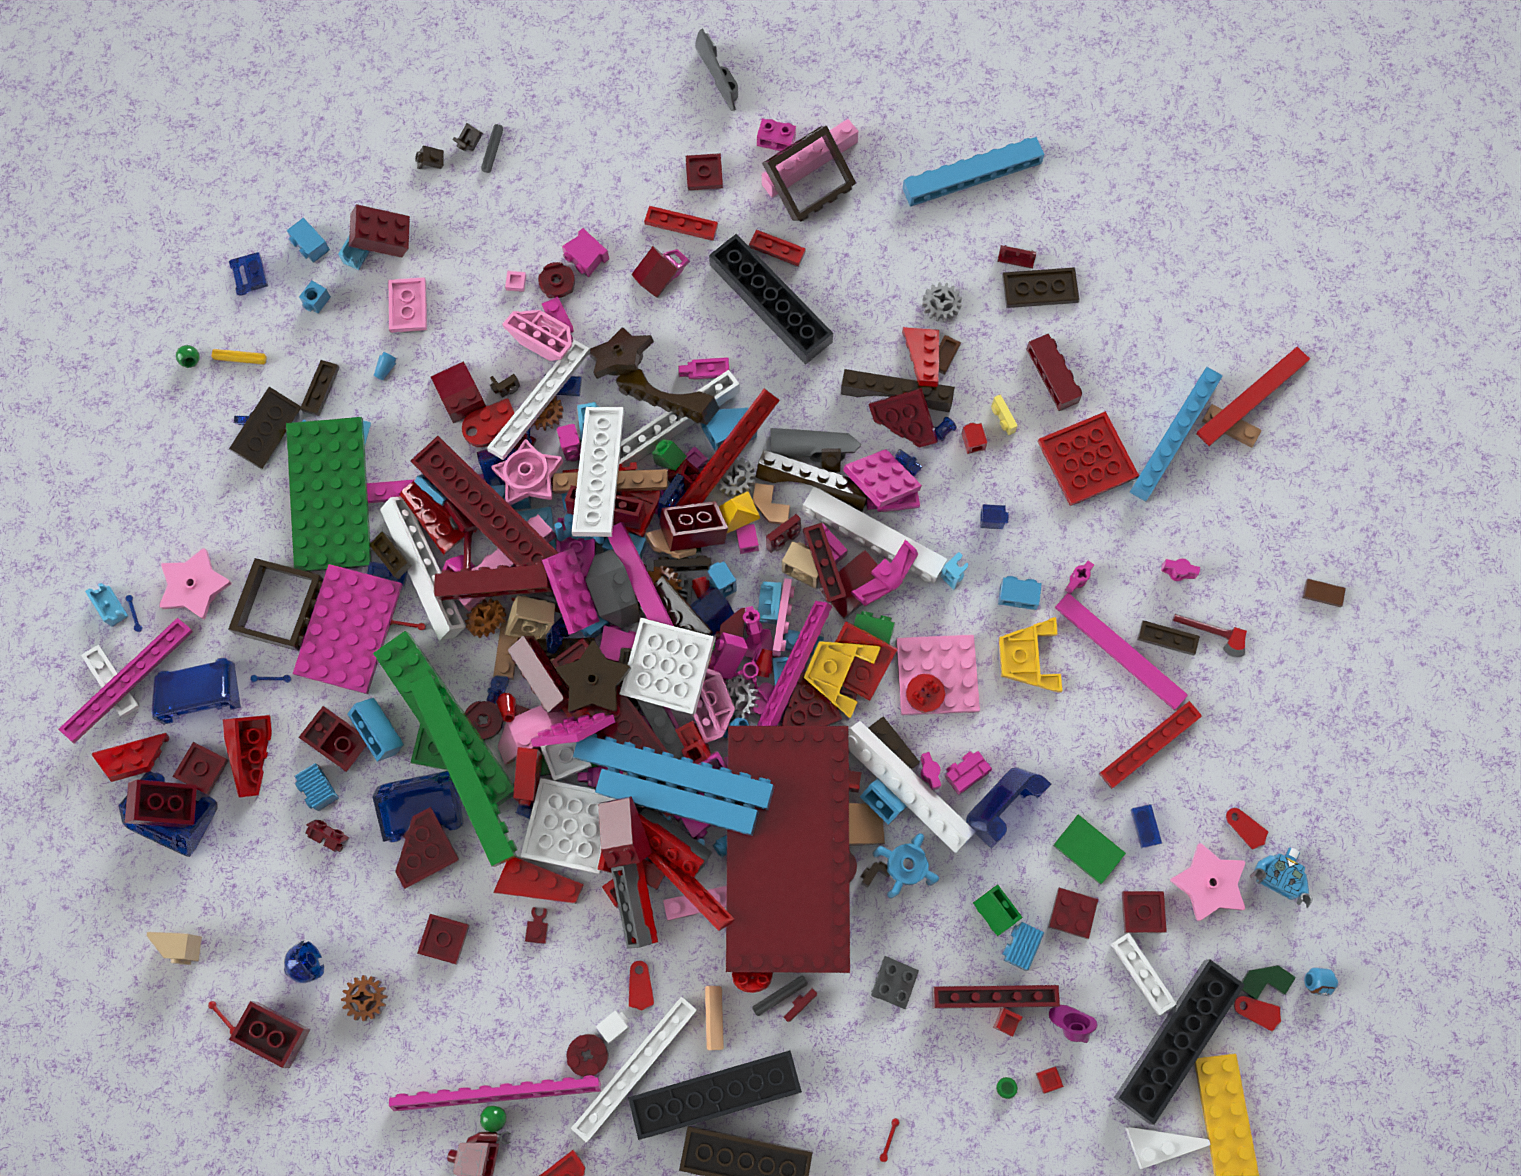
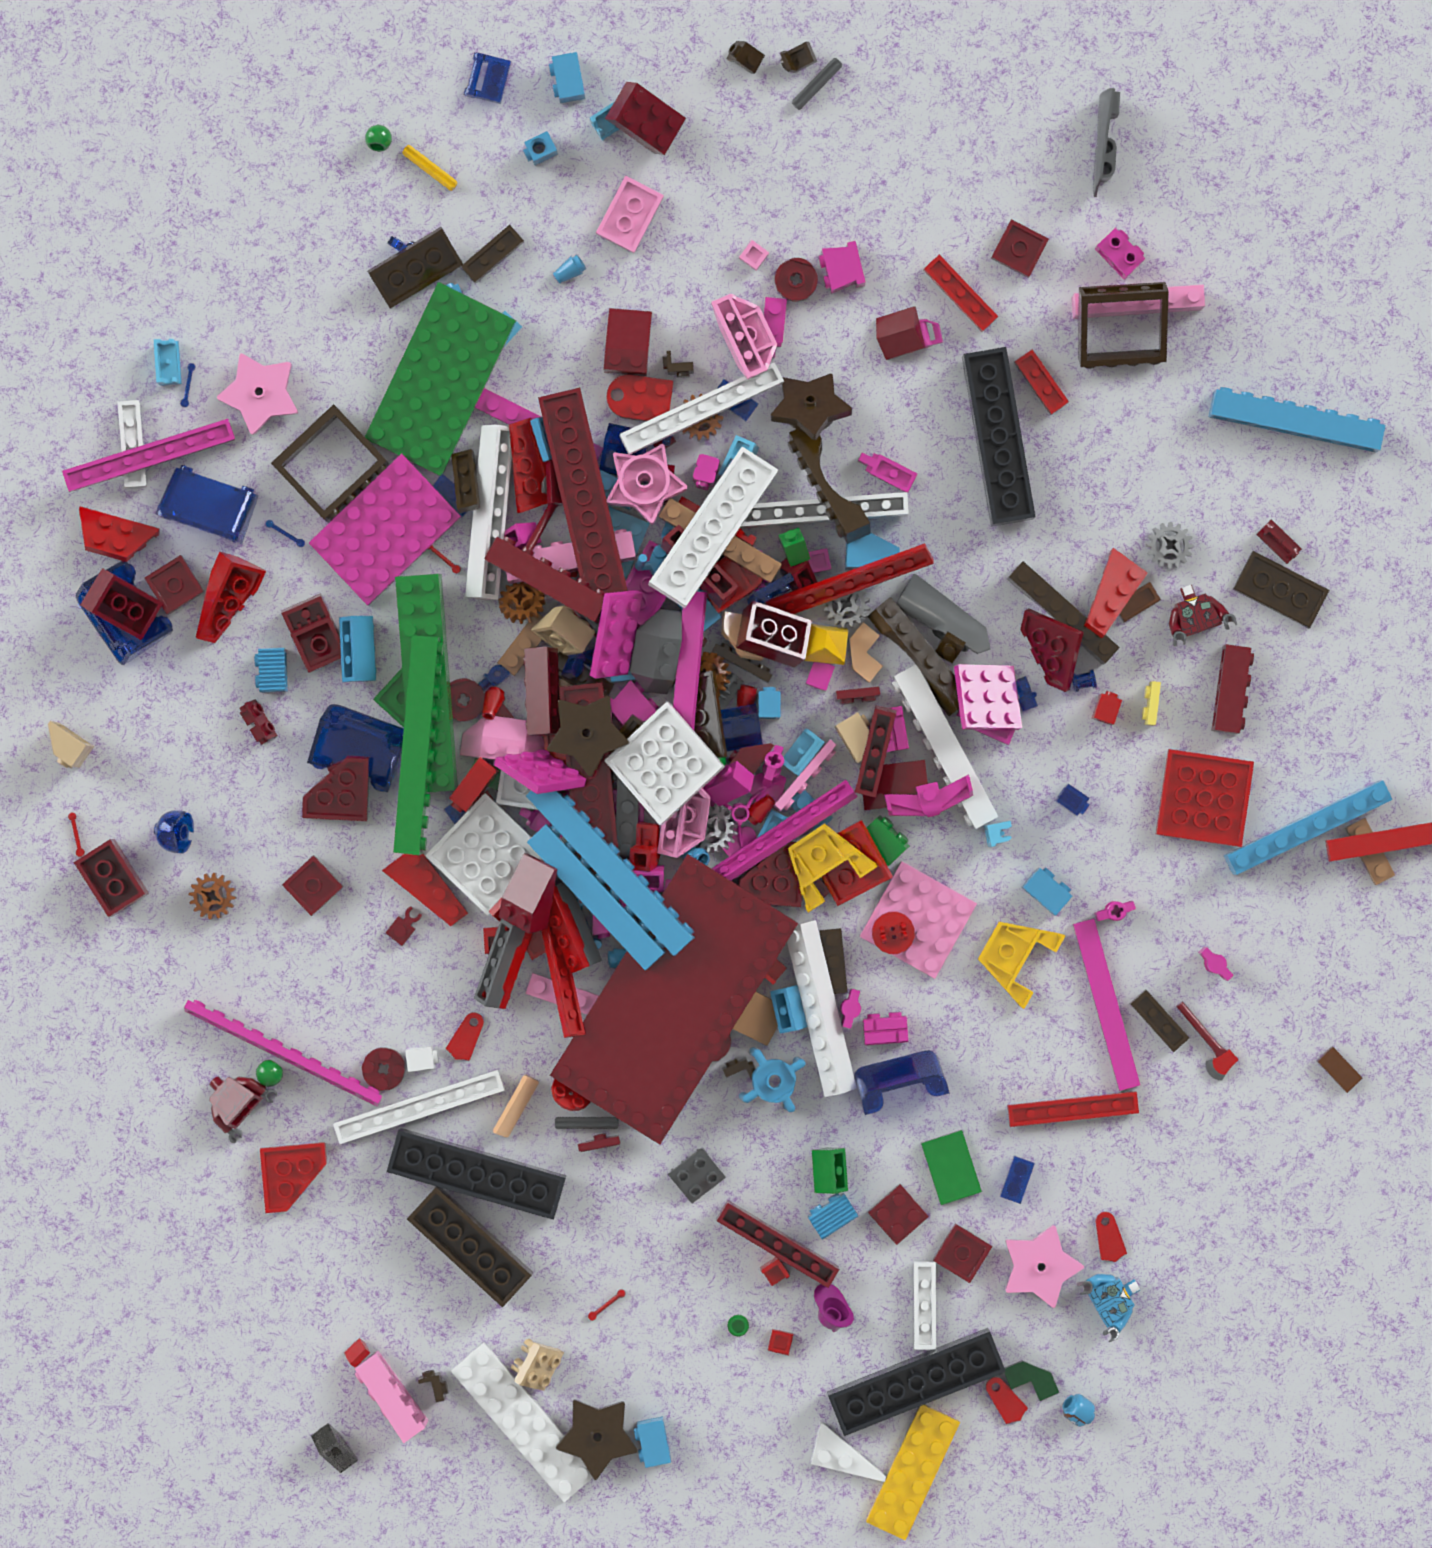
camera: 25 degrees right, 15 degrees up
(994, 335) = (1197, 615): none -> dark red torso

